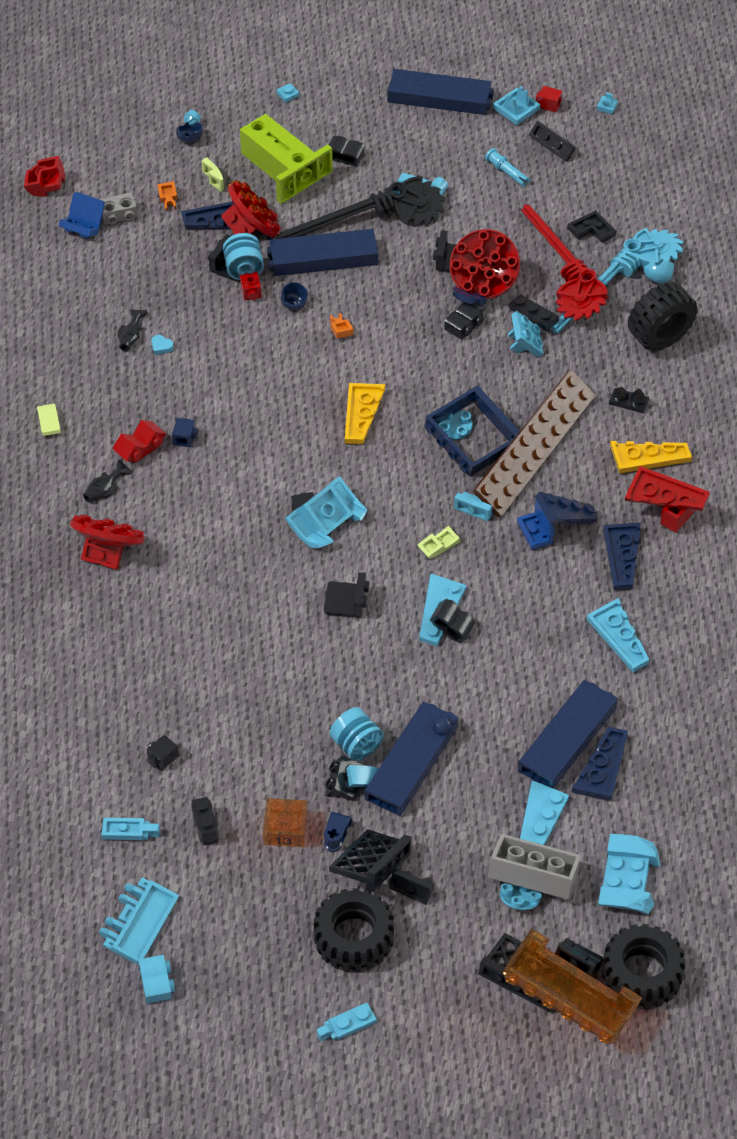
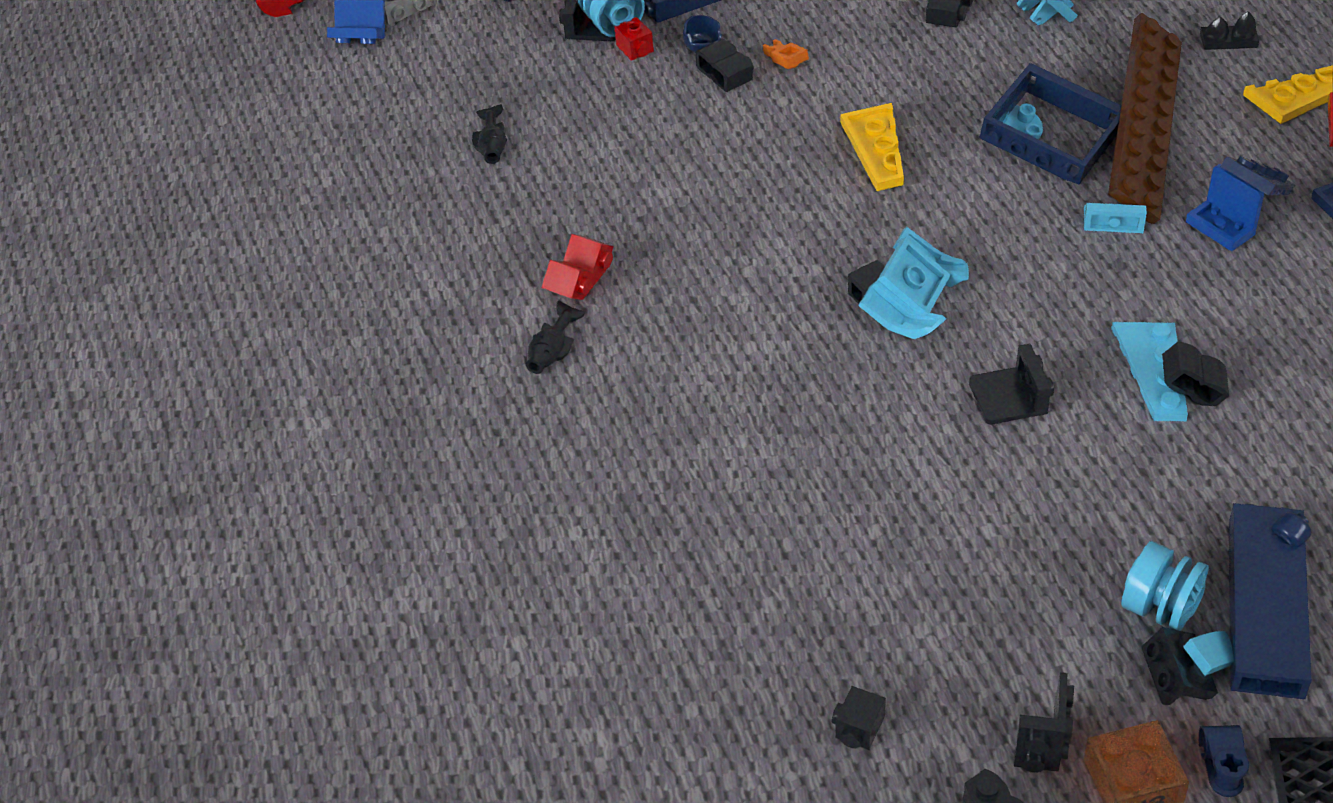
camera: 15 degrees left, 5 degrees down
(48, 419) = (424, 278): yellowish green slope -> none
(104, 540) = (597, 419): red bracket -> none
(161, 345) = (543, 141): medium azure tile -> none
(184, 432) = (638, 238): dark blue brick -> none
(249, 794) = (1045, 740): none -> black bracket
(297, 323) = (724, 65): none -> black brick
(438, 544) = (1096, 279): yellowish green slope -> none

